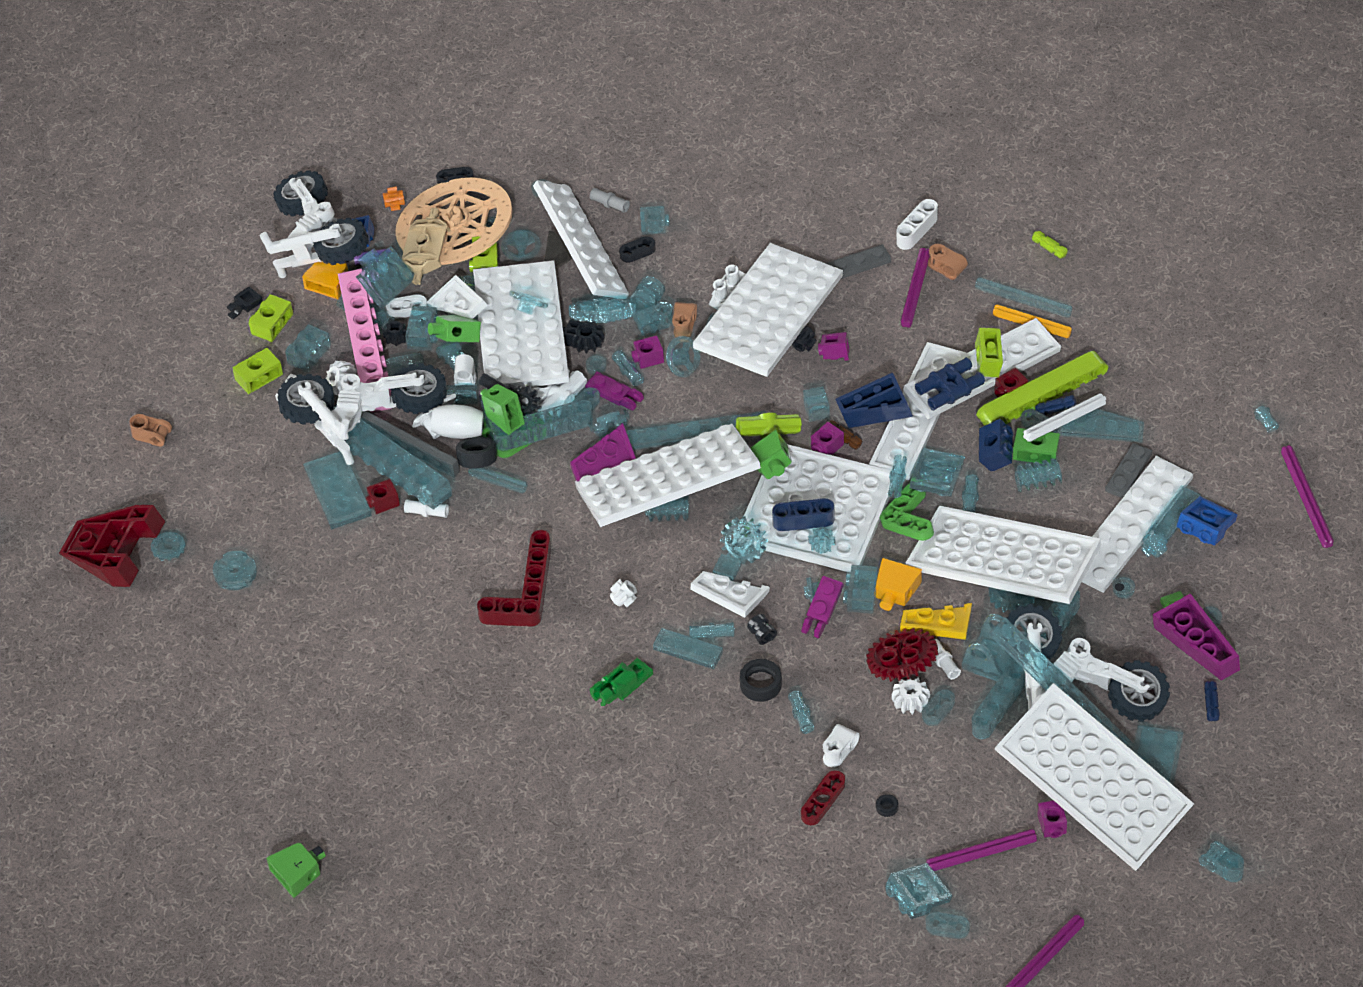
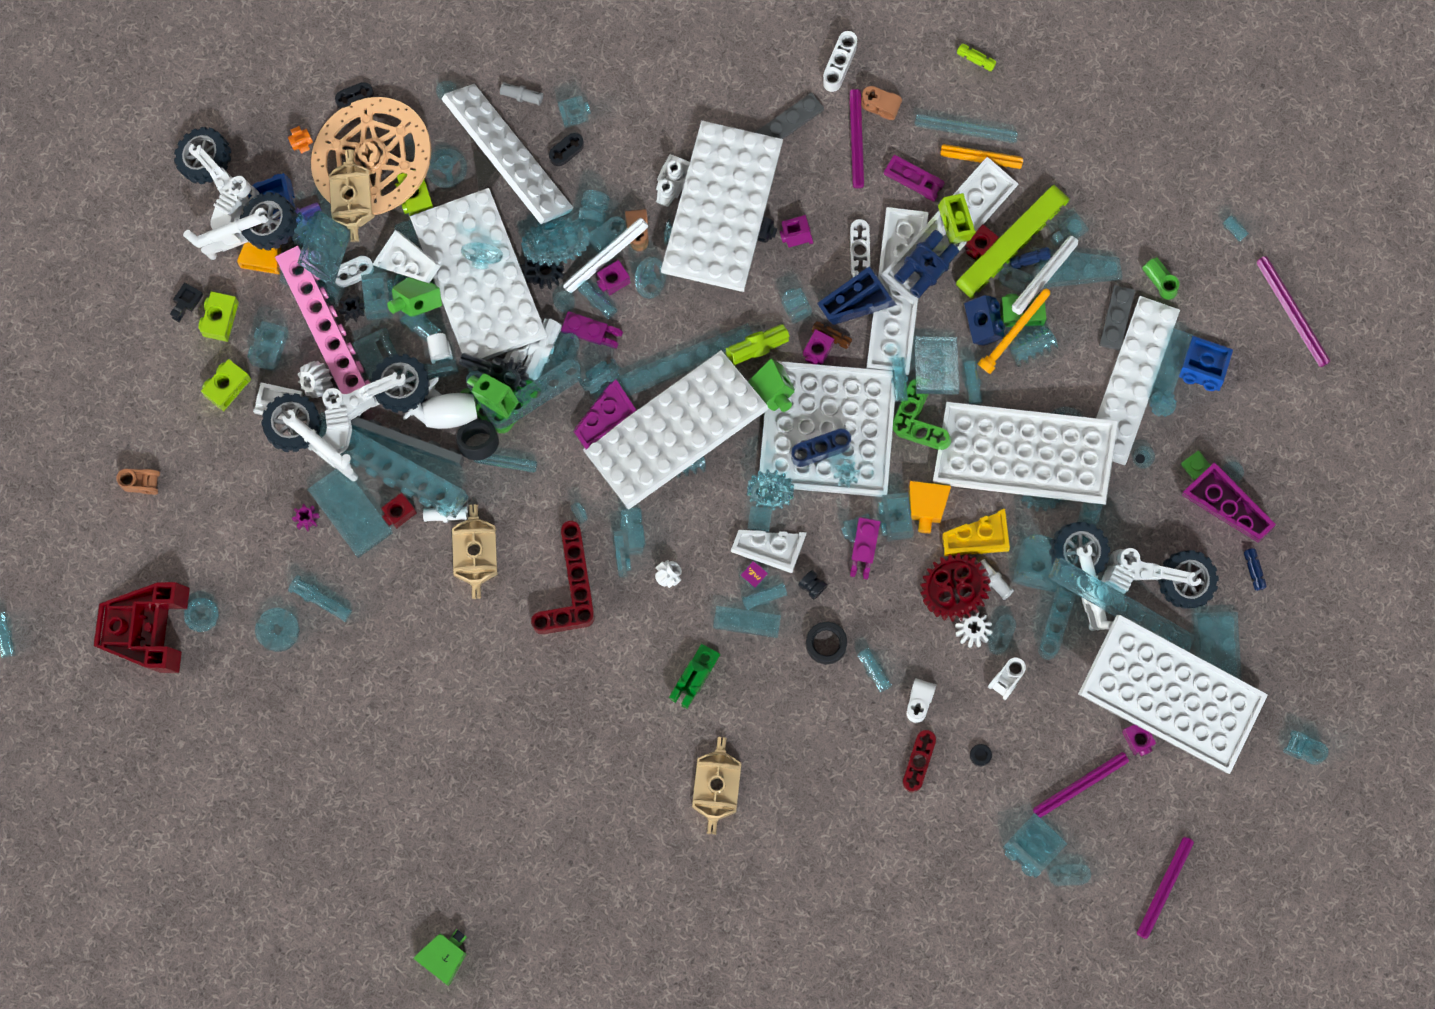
camera: 15 degrees left, 25 degrees up
(278, 549) = (311, 594): none -> clear light blue pin
(294, 486) = (305, 523): none -> magenta gear
(443, 556) = (479, 567): none -> tan plate
(553, 529) = (579, 512): none -> clear light blue tile
(594, 560) = (629, 540): none -> clear light blue plate
(609, 792) = (718, 803): none -> tan plate
(646, 330) = (605, 255): none -> white axle
(707, 612) = (754, 575): none -> magenta tile
(889, 364) = (854, 235): none -> white beam
(930, 743) = (1005, 680): none -> white piece
(957, 323) = (913, 177): none -> magenta plate
(990, 481) = (989, 361): none -> light orange piece
(1106, 388) = (1071, 227): none -> clear light blue plate
(1182, 446) = (1160, 277): none -> bright green piece

